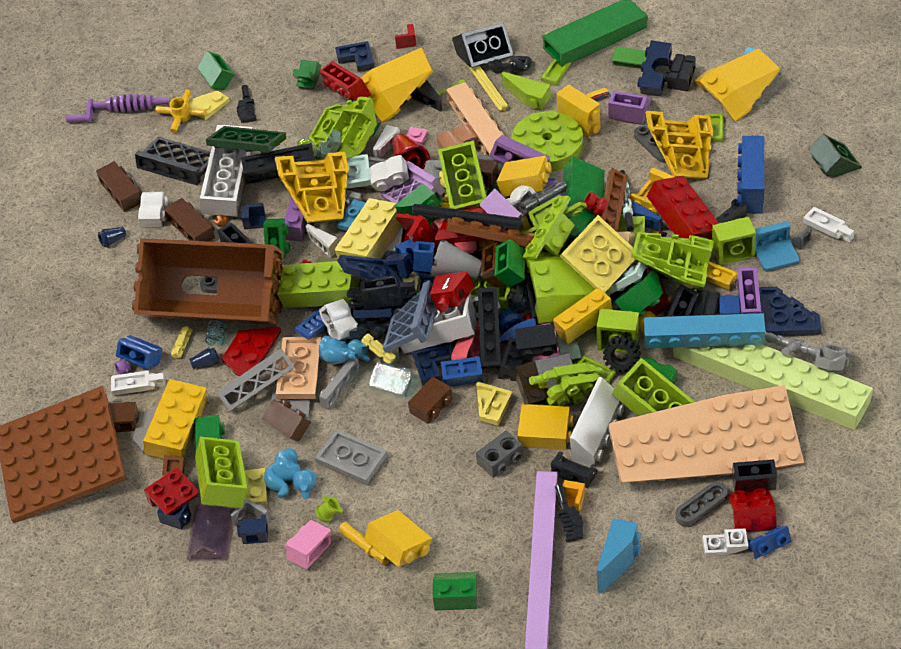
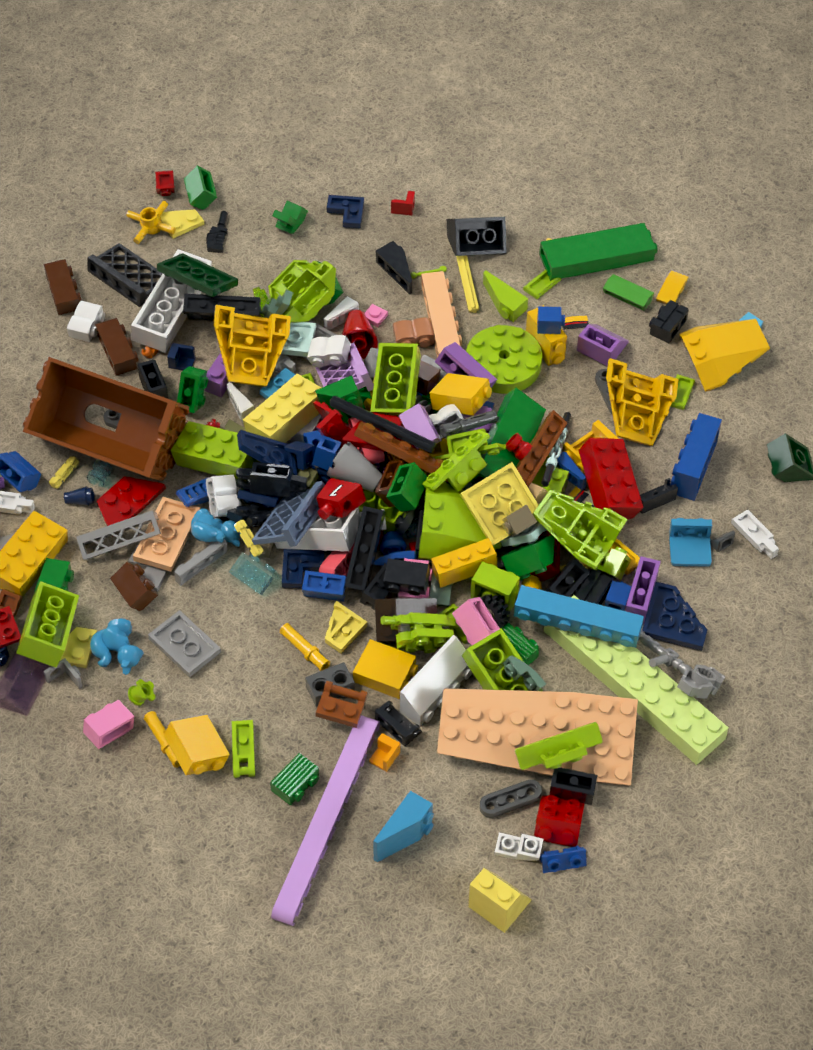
camera: 10 degrees right, 5 degrees up
(111, 235) = (35, 337): dark blue cone -> none
(124, 102) = (97, 197): medium lavender piece -> none
(181, 75) = (165, 183): none -> red bracket
(253, 530) = (61, 693): dark blue brick -> none
(344, 82) = (320, 238): red brick -> none
(395, 81) = (371, 250): yellow wedge -> none
(430, 400) = (283, 607): reddish brown brick -> none
(441, 530) = (243, 748): none -> lime plate
(455, 591) = (233, 815): green slope -> none
(470, 432) = (310, 652): none -> yellow pin
(499, 543) = (295, 779): none -> green brick
(517, 65) = (502, 265): black piece -> none
(518, 470) = (340, 710): none -> dark orange plate
(570, 517) = (374, 774): black piece -> none
(580, 93) = (549, 320): none -> blue brick
(612, 361) = (475, 620): none -> bright pink brick
(621, 264) = (518, 521): none -> dark tan brick
(656, 55) = (648, 297): dark blue arch -> none
(669, 387) = (516, 668): none -> sand green slope
(676, 40) = (672, 287): none -> yellow slope
(717, 280) = (615, 563): none -> lime brick
(725, 591) = (496, 899): none -> light yellow slope
(732, 445) = (559, 748): none -> lime bracket
(734, 241) = (649, 524): lime brick -> none

